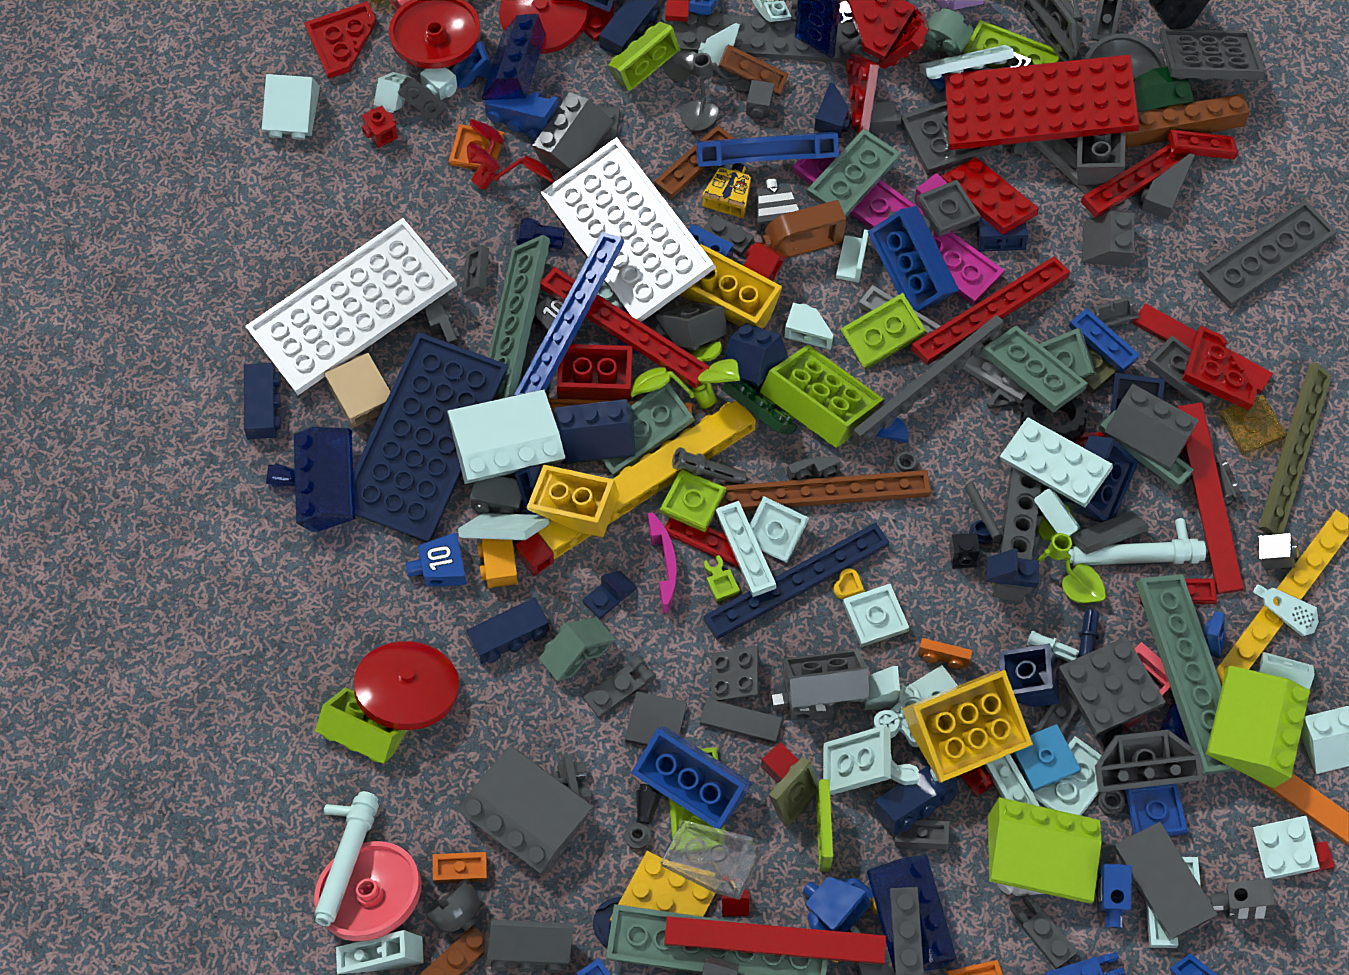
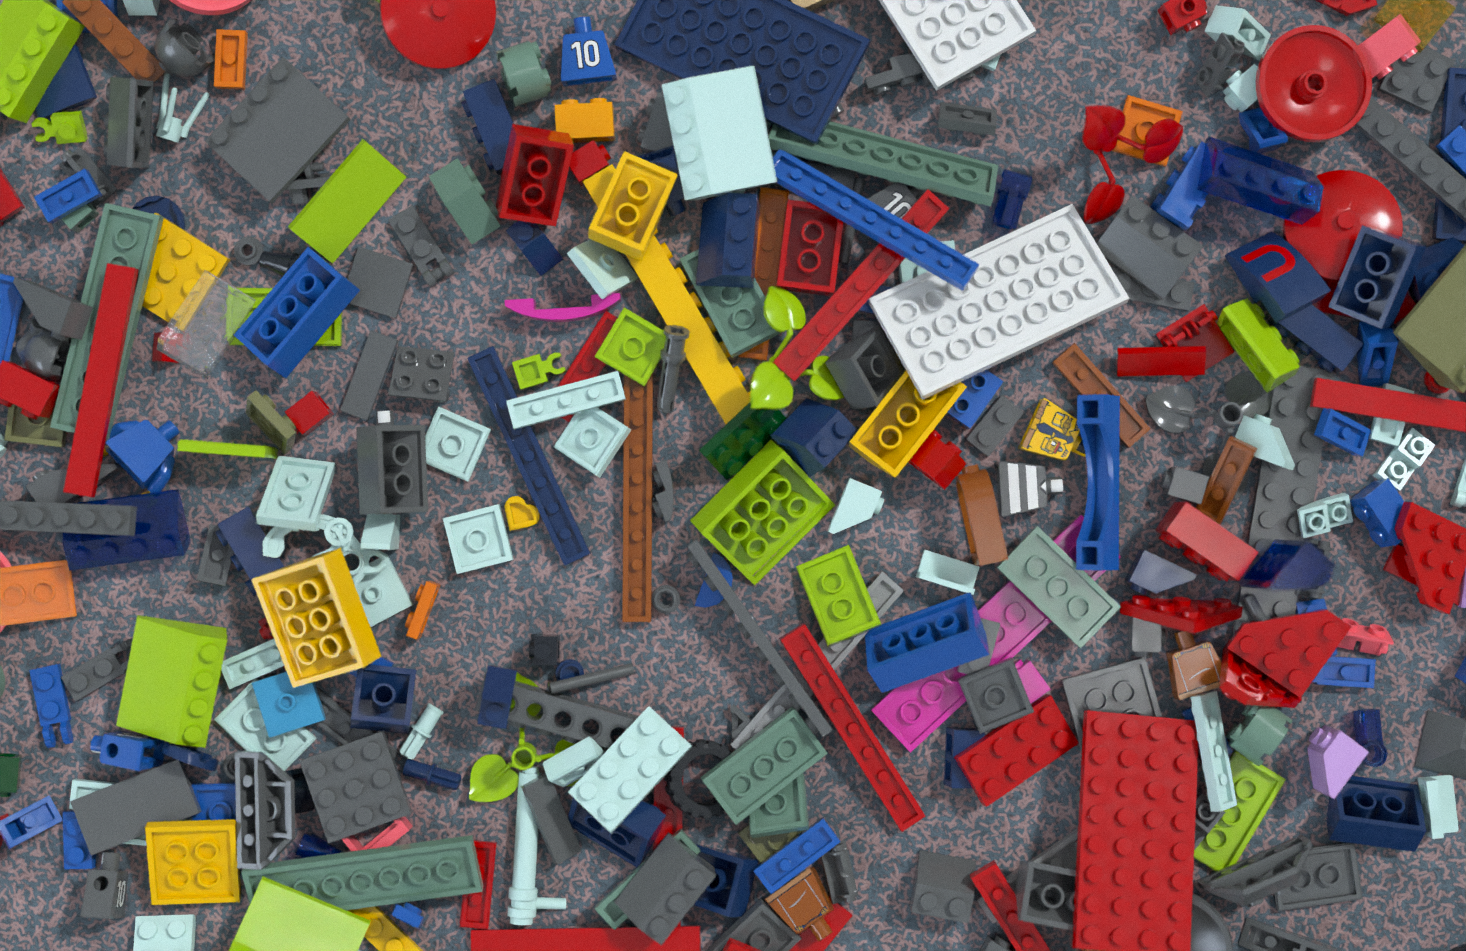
camera: 95 degrees right, 25 degrees up
(459, 606) = (523, 73): none -> sand green brick
(503, 526) = (612, 124): light aqua tile -> none
(526, 911) = (169, 126): none -> light aqua plant
(551, 583) = (534, 175): none -> red brick
(584, 747) = (347, 201): none -> lime tile
(588, 46) = (1277, 275): none -> dark blue slope
(625, 529) = (602, 267): none -> light aqua plate
(644, 103) = (1197, 329): none -> red hinge
(663, 120) = (1161, 361): none -> red tile
(792, 639) = (454, 443): none -> light aqua tile
(803, 78) = (1205, 542): none -> brick
(903, 83) = (1192, 666): none -> torso
(1109, 834) = (190, 756): none -> dark blue tile
(1144, 332) = (804, 904): none -> dark orange torso
(1205, 823) = (193, 862): none -> yellow plate
(1207, 938) = (75, 848): none -> blue plate

